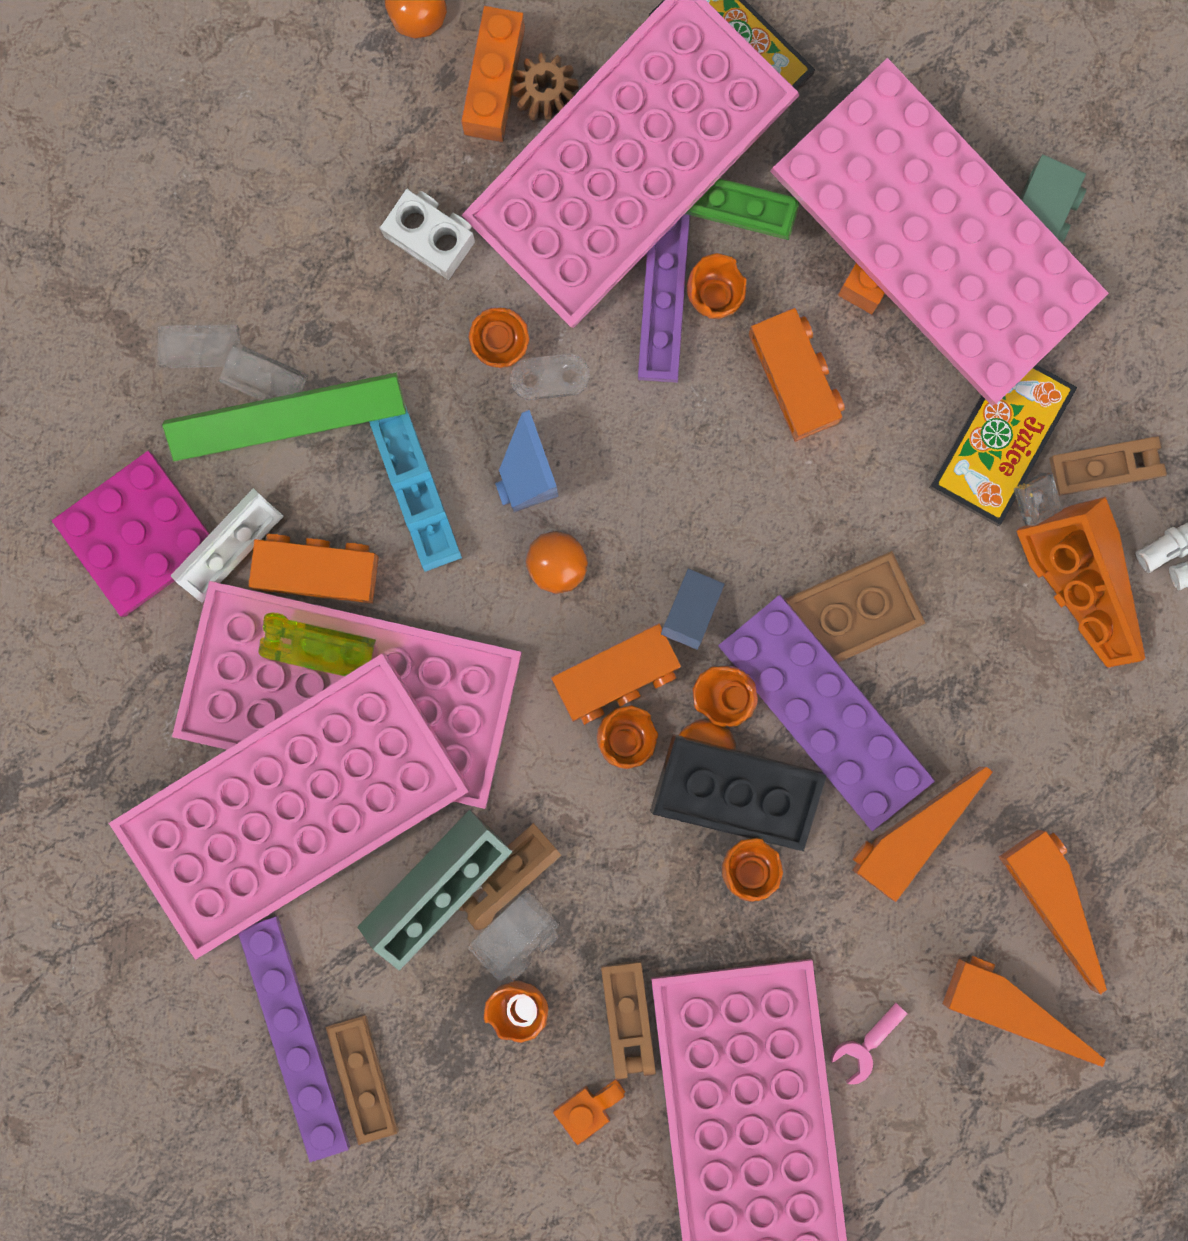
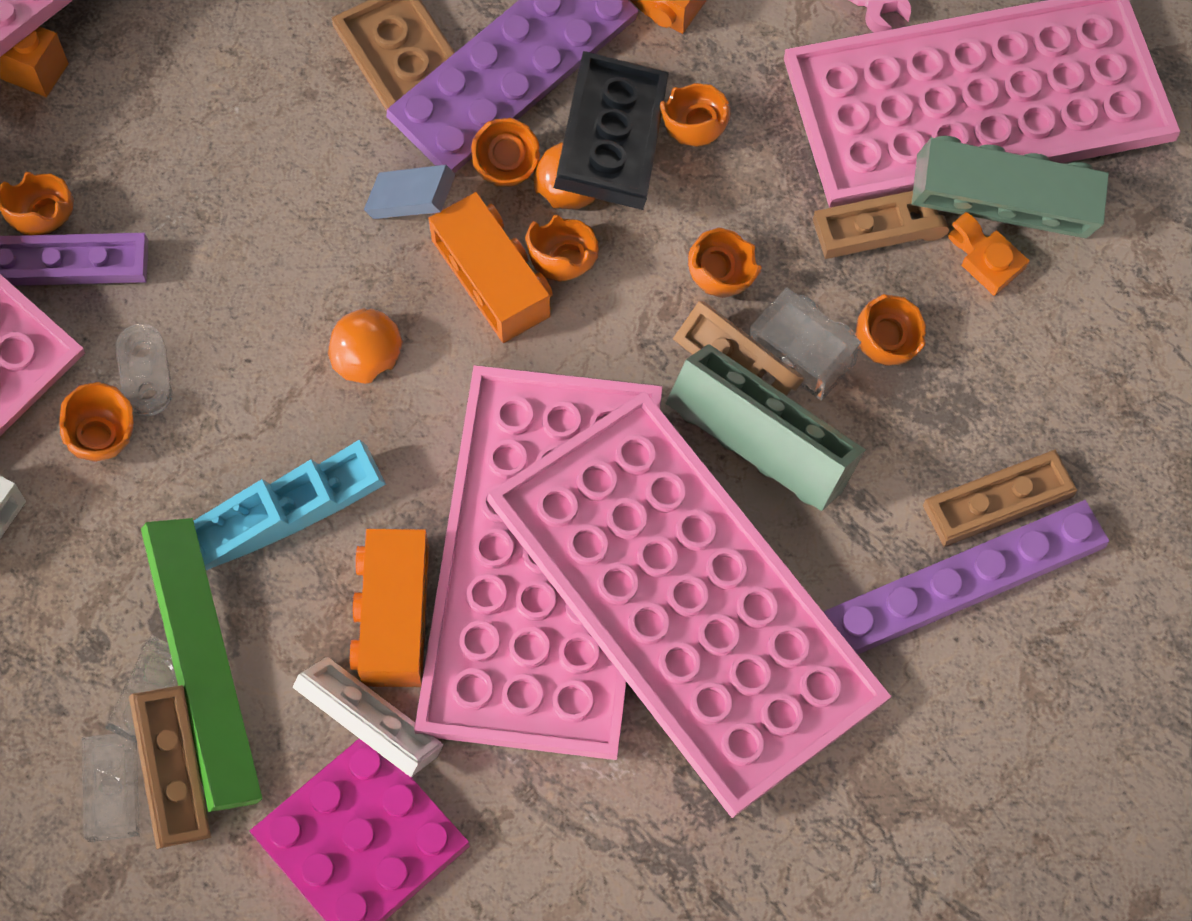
camera: 100 degrees left, 20 degrees down
(200, 391) = (169, 766): none -> medium nougat tile
(314, 646) = (486, 584): clear neon green plate -> none
(525, 469) = (249, 371): medium blue slope -> none
(596, 876) = (723, 263): none -> orange hair
(639, 1139) = (1010, 187): none -> sand green brick
(796, 374) = (137, 119): orange brick -> none

